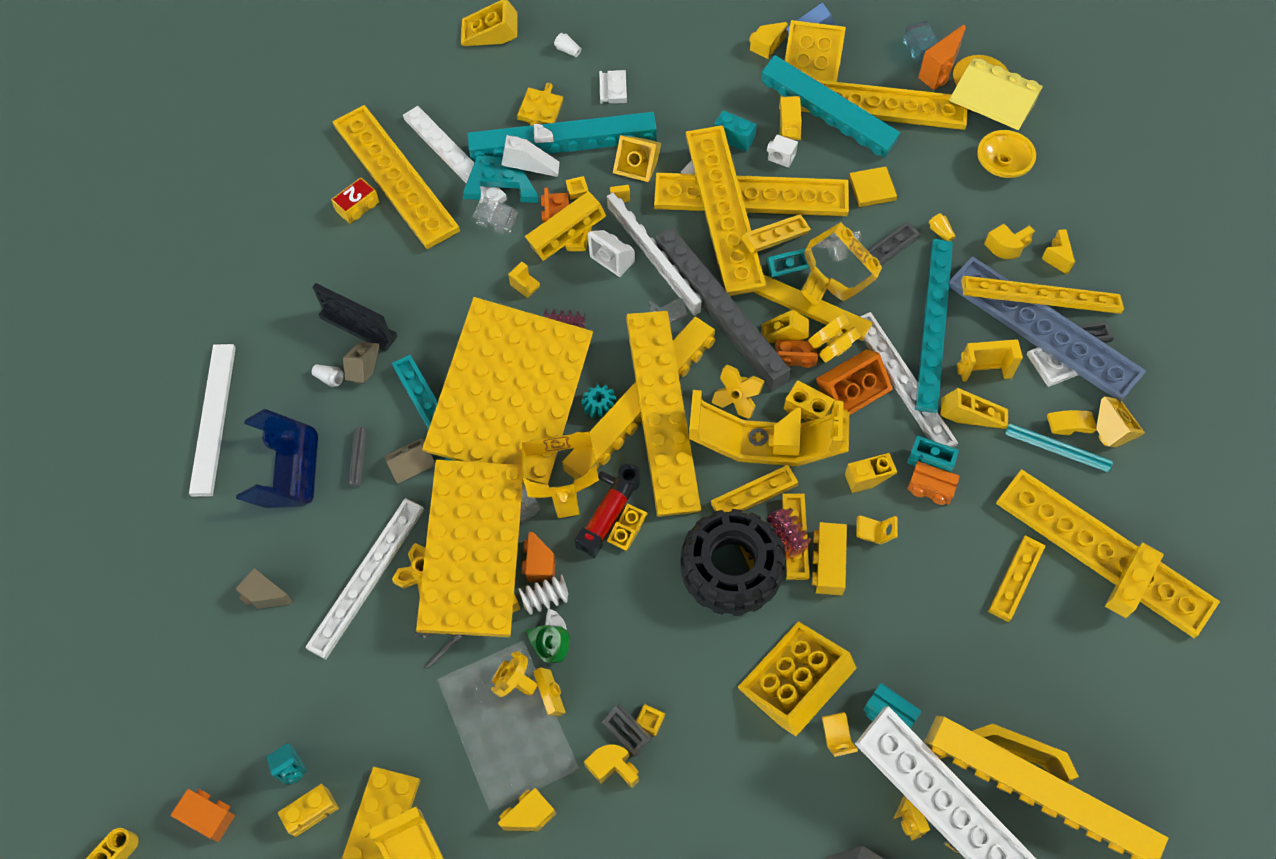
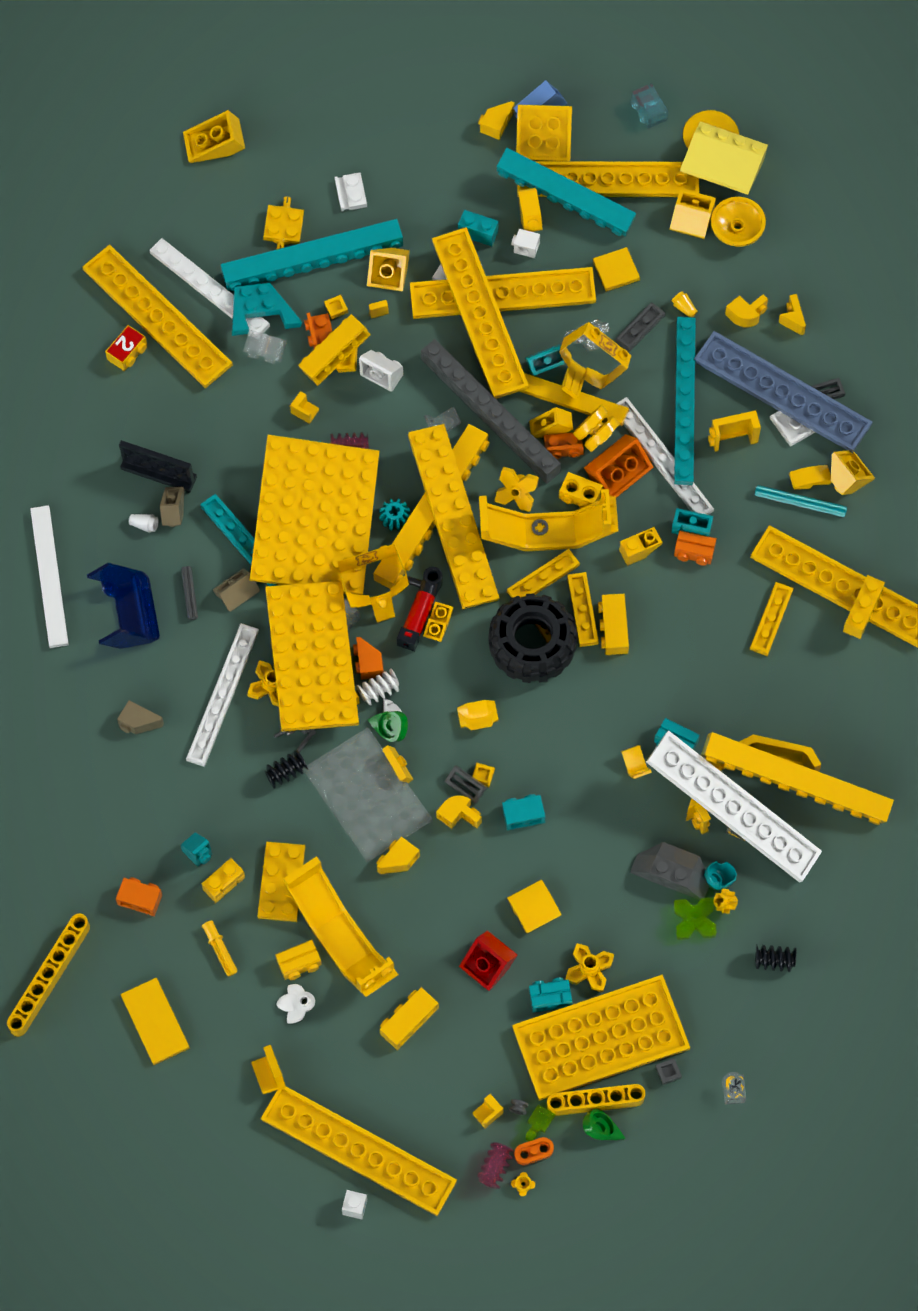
camera: 10 degrees left, 5 degrees up
(414, 678) = (285, 768): none -> black piece
(511, 676) = (368, 754): yellow tile -> none
(524, 155) = (284, 283): white slope -> none
(542, 134) = (294, 257): white tile -> none
(567, 45) = (297, 151): white cone -> none
(655, 644) = (477, 714): none -> yellow slope
(657, 257) = (416, 360): white plate -> none
(691, 777) = (523, 812): none -> teal brick
(775, 233) = (531, 332): yellow plate -> none
(787, 434) = (564, 522): yellow slope -> none
(789, 531) = (576, 606): clear pink piece -> none
(798, 677) = (598, 723): yellow slope -> none
(876, 531) = (650, 595): yellow bracket -> none
(940, 59) = (667, 128): orange slope -> none
(958, 141) = (692, 213): none -> yellow slope
(973, 410) = (725, 478): yellow slope -> none
(1042, 294) = (778, 361): yellow tile -> none

